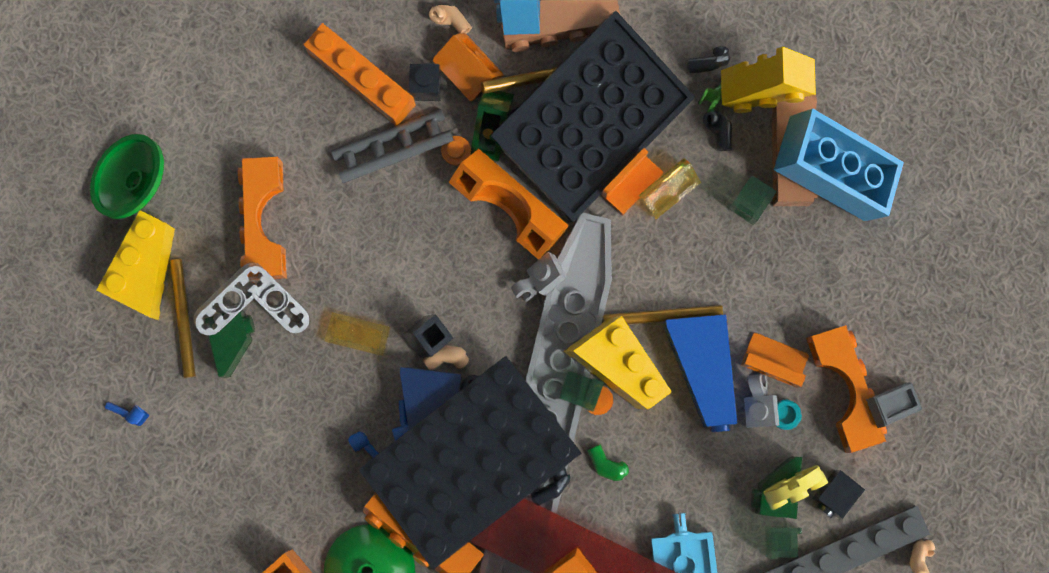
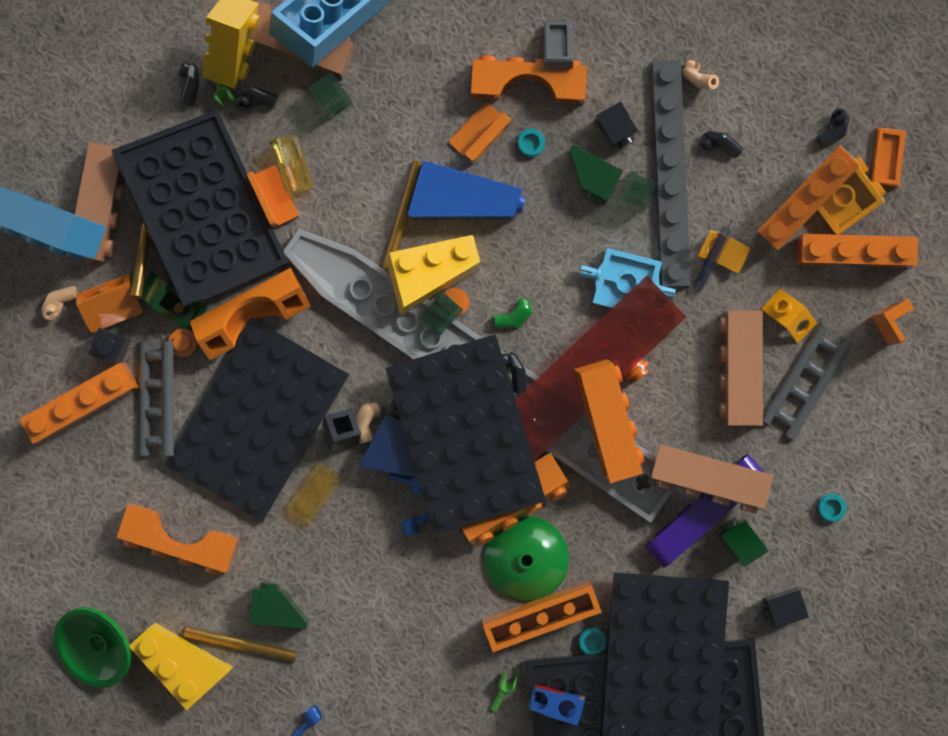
camera: 70 degrees left, 5 degrees up
(255, 291) = (242, 568): light grey beam -> none
(408, 250) = (257, 419): none -> black plate
(543, 278) = (327, 307): light grey plate -> none
(761, 408) = (517, 161): light grey plate -> none
(795, 487) = (595, 161): light yellow plate -> none

